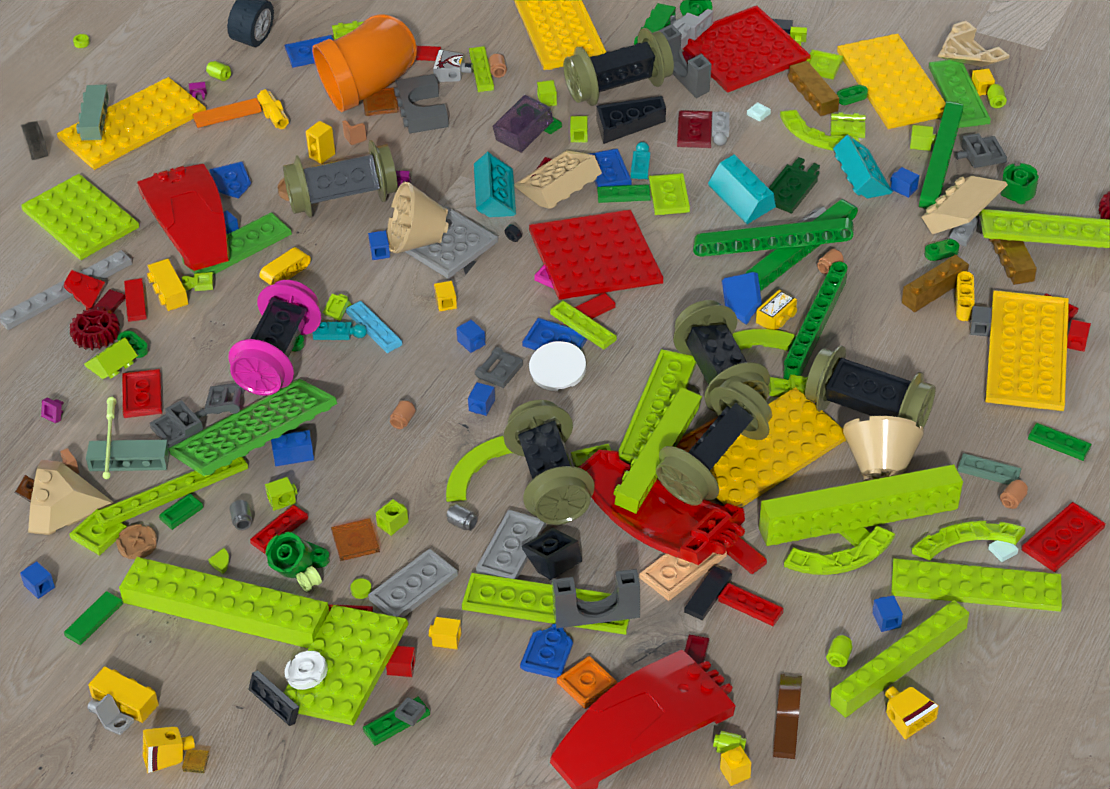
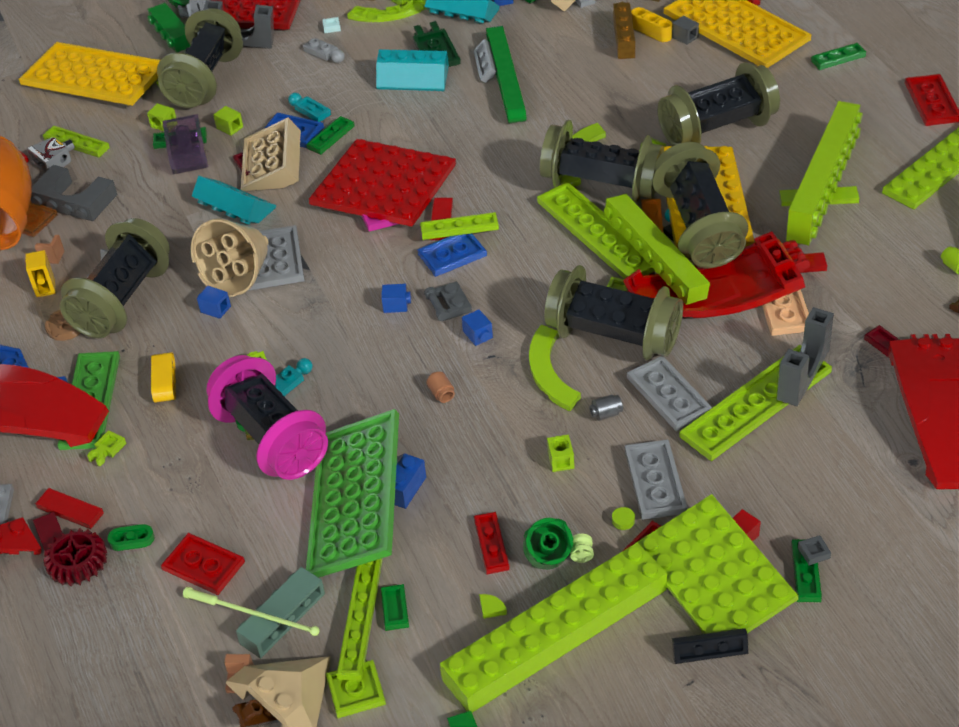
camera: 50 degrees left, 0 degrees up
(51, 409) = (149, 646): magenta tile -> none
(112, 359) = (133, 563): lime slope -> none
(136, 541) = (400, 662): medium nougat tile -> none
(167, 285) = (83, 471): yellow brick -> none
(178, 423) = (281, 552): dark grey plate -> none
(218, 399) = (284, 506): dark grey plate -> none
(240, 514) = (450, 560): flat silver brick -> none
(281, 493) = (452, 517): lime brick -> none
(306, 670) = (704, 600): white tile -> none
(355, 539) = (558, 493): clear orange tile -> none
(375, 327) = (316, 354): medium azure tile -> none
(445, 296) = (327, 290): yellow brick -> none
(445, 633) = (735, 483): yellow brick -> none
(497, 65) = (89, 128): nougat brick -> none
(513, 233) = (301, 215): black tile -> none
(547, 652) = (810, 429): blue tile -> none
(553, 553) = (706, 367): black slope -> none
(557, 365) = (488, 264): white tile -> none
(586, 682) = (863, 422): orange tile -> none
(629, 117) = (253, 87): black wedge -> none
(669, 194) = (365, 110): lime plate -> none
(694, 129) = (307, 64): dark red tile -> none
(708, 593) = (827, 300): black tile -> none
(742, 295) = (525, 126): blue tile -> none
(750, 604) = (860, 285): red tile -> none
(776, 311) = (561, 111): yellow brick -> none
(781, 234) = (489, 77): green beam -> none
(815, 320) = (596, 104): green beam -> none
(828, 259) = (541, 67): nougat brick -> none
(843, 560) = (861, 214): lime tile -> none
(882, 444) = (781, 131): tan cone -> none
(887, 613) = (938, 216): blue brick -> none
(941, 250) = (588, 13): green plate -> none
(964, 532) = (889, 139): lime tile -> none
(988, 469) = (828, 102): sand green tile -> none
(1003, 550) = (920, 132): light aqua tile -> none
(1014, 494) = (874, 99): nougat brick -> none

